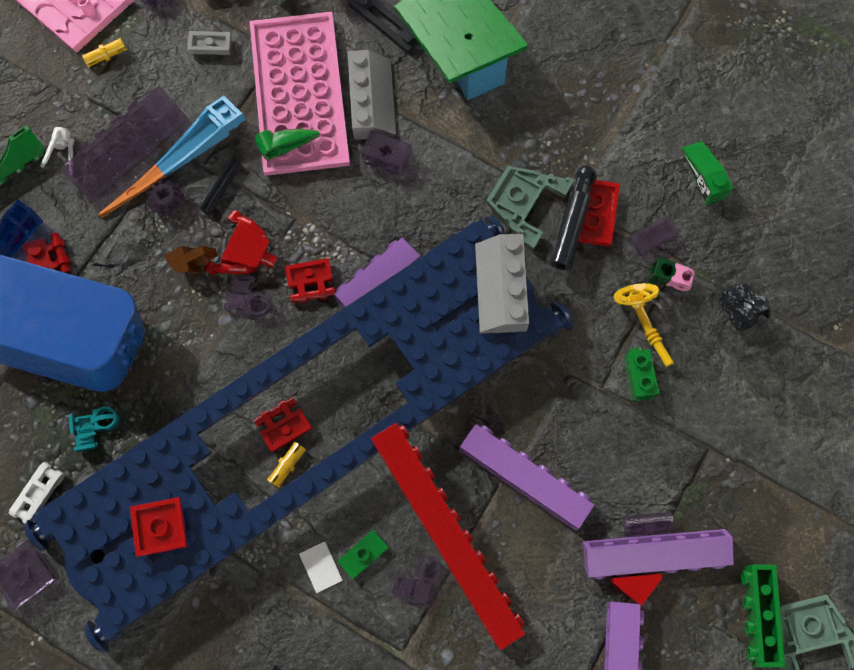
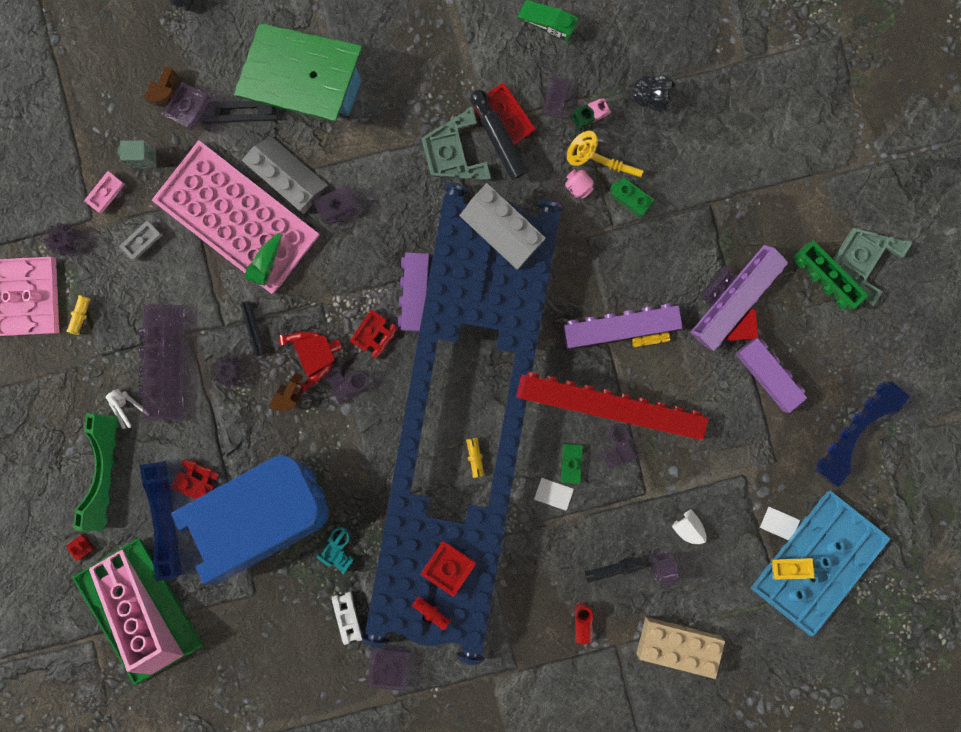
camera: 45 degrees left, 15 degrees up
(102, 551) = (431, 613): none -> red pin
(207, 130) = (206, 303): dark azure plate -> none
(286, 429) = (454, 437): red plate -> none
(542, 514) = (651, 339): none -> yellow axle
(606, 321) = (579, 183): none -> bright pink head

